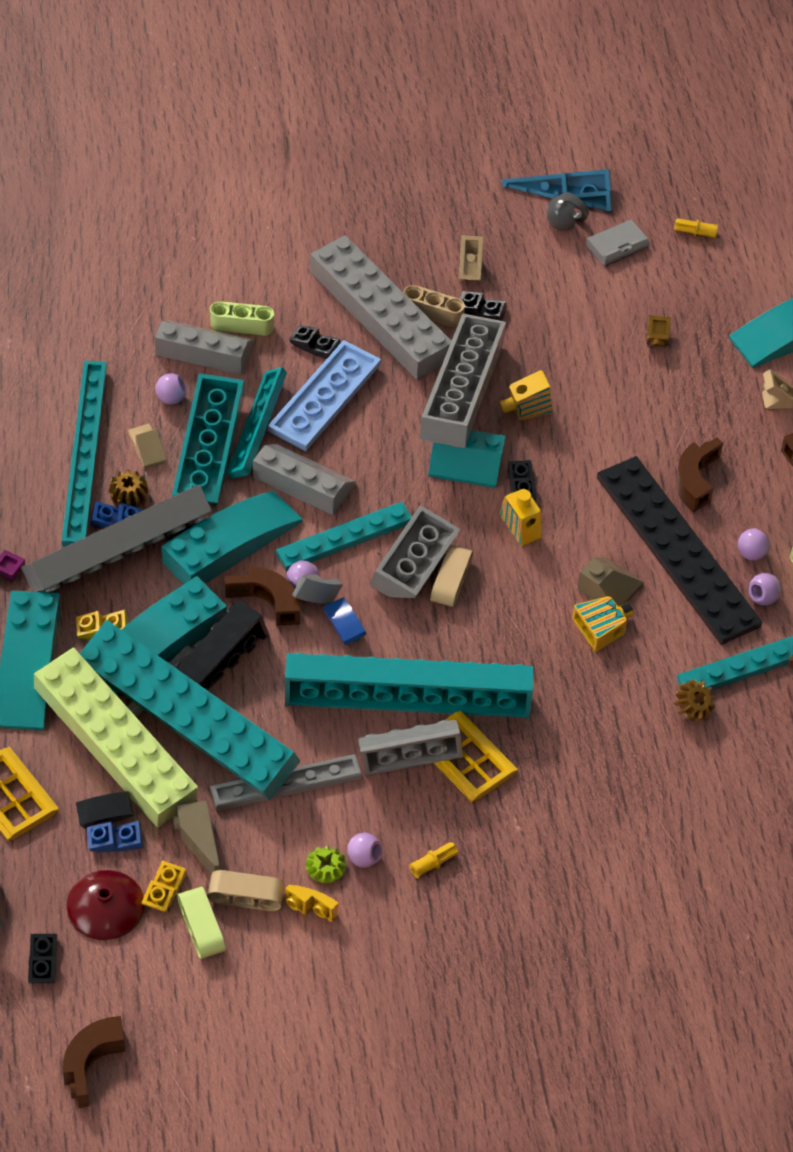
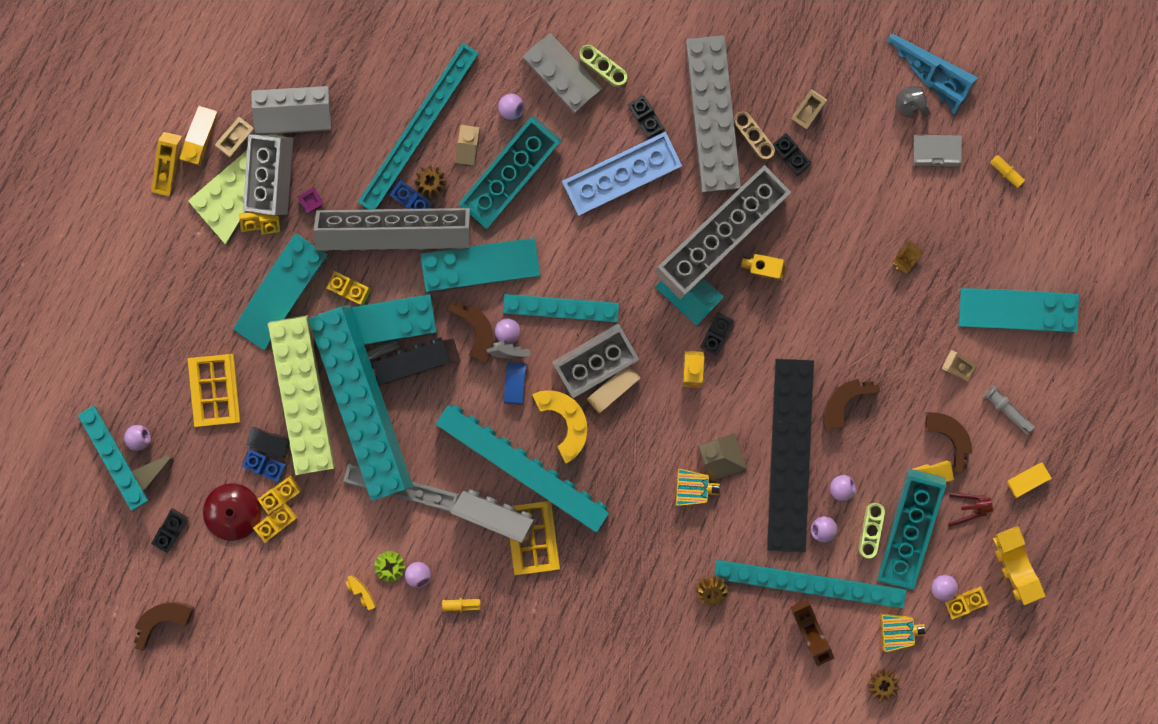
camera: 35 degrees right, 35 degrees up
(150, 856) = (279, 495): none -> yellow slope
(197, 833) = (318, 495): dark tan slope -> none
(201, 922) = (283, 564): yellowish green beam -> none
(246, 890) = (325, 558): tan beam -> none
(256, 423) = (556, 172): teal plate -> none
(301, 478) = (563, 239): light grey slope -> none
(422, 616) = (574, 417): none -> yellow brick

